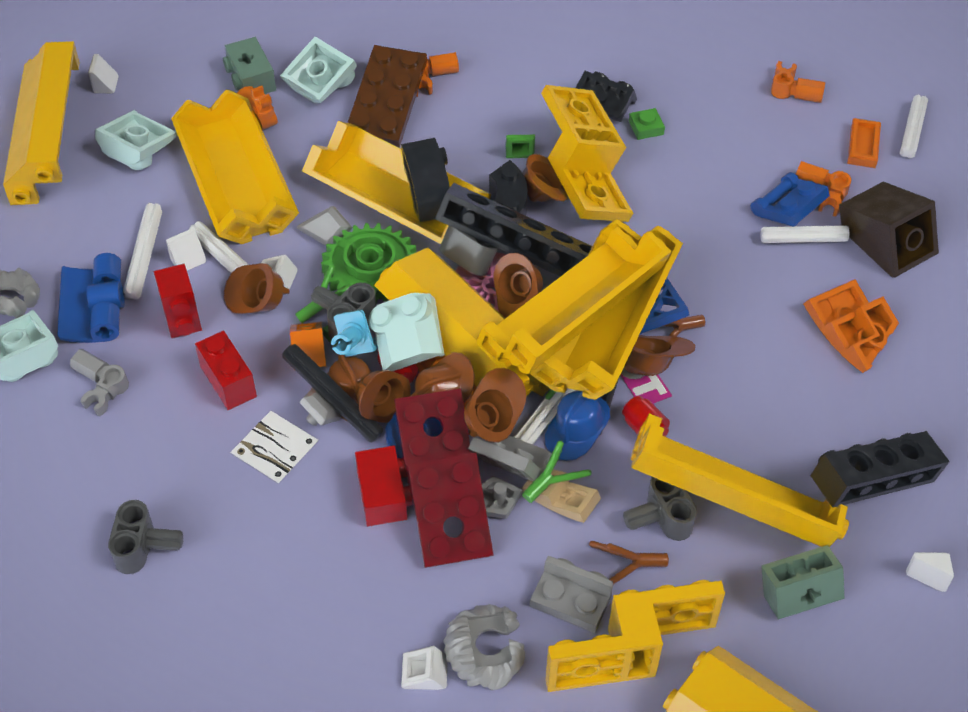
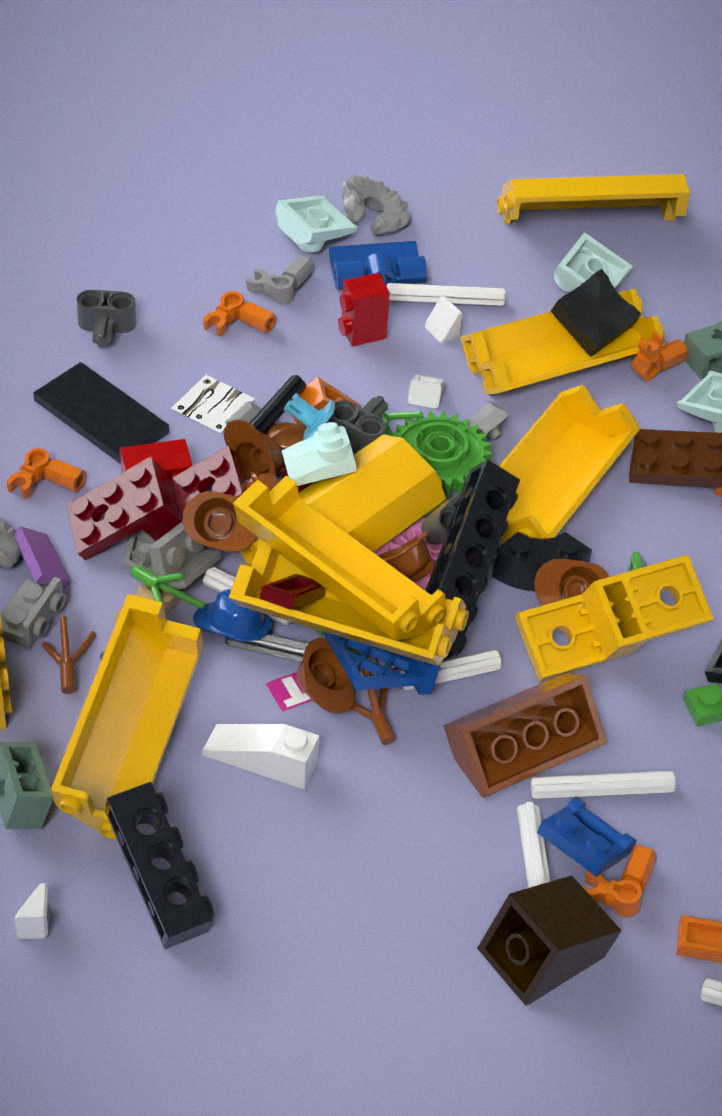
camera: 85 degrees right, 5 degrees down
(102, 76) = (684, 242): white slope -> none
(137, 421) = (234, 308): none -> orange bar
(208, 133) = (595, 313): none -> black brick
(217, 247) = (445, 350): white axle -> none
(226, 370) = (290, 353): red brick -> none
(254, 289) = (392, 373): dark orange piece -> none
(284, 544) = (99, 411): none -> black tile
(366, 595) = (40, 466): none -> orange bar
(426, 176) = (554, 480): black brick -> none
(503, 585) = (40, 556): none -> medium lavender tile
(598, 345) = (292, 591): none -> dark red tile
(637, 411) = (238, 675): red brick -> none
(706, 244) = (526, 733): none -> dark orange slope
(728, 402) = (267, 750): none -> white slope
(733, 190) = (602, 784): none -> white axle
(852, 323) = (393, 886): orange slope -> none

